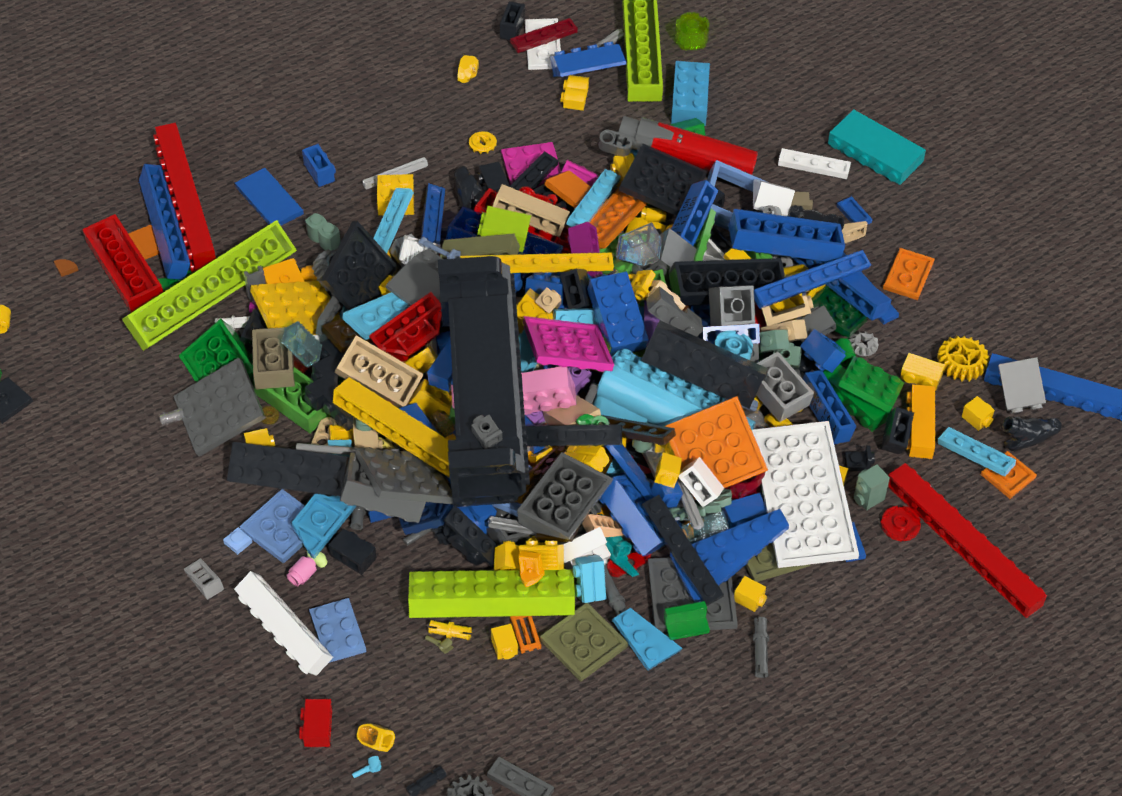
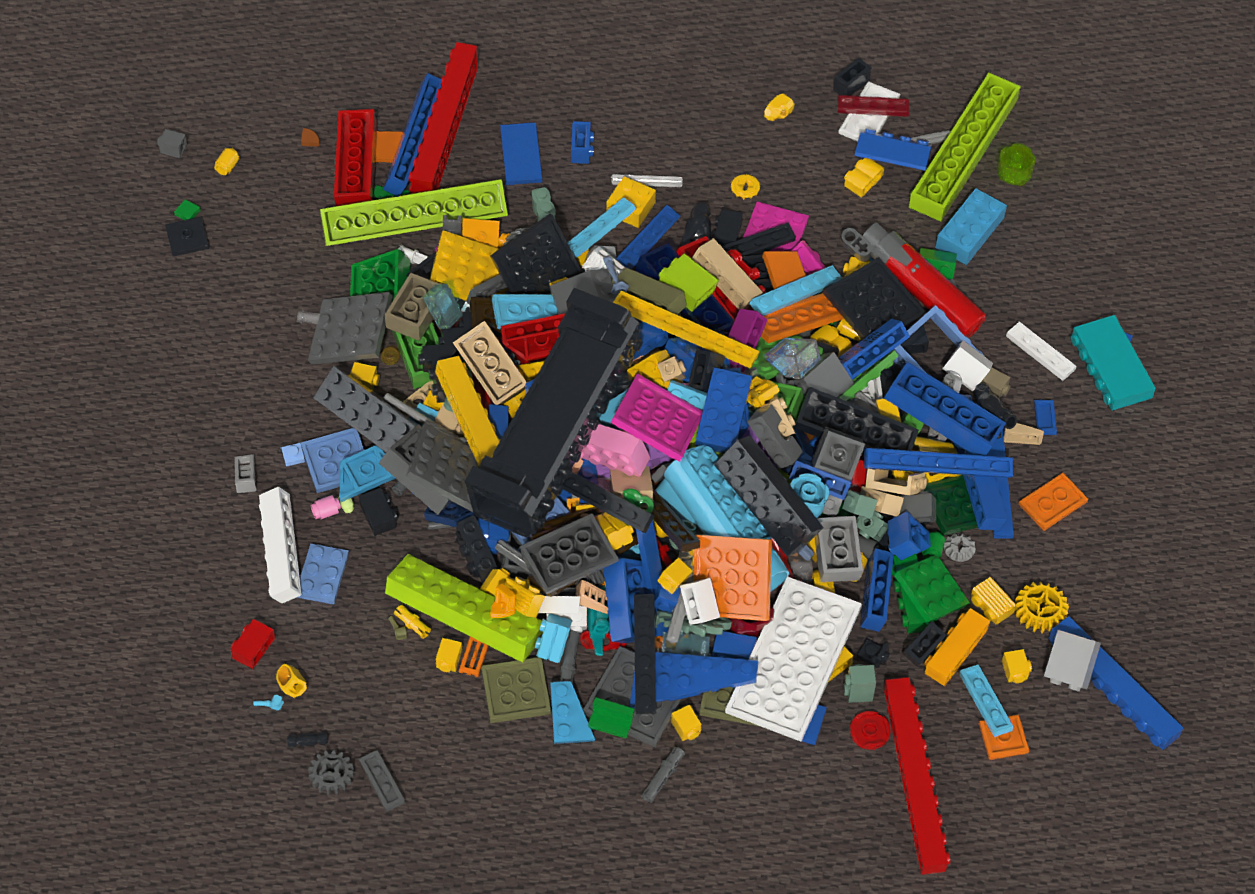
camera: 30 degrees right, 5 degrees up
(488, 437) = (517, 470): dark grey brick -> none
(1029, 431) = (1050, 707): black animal -> none

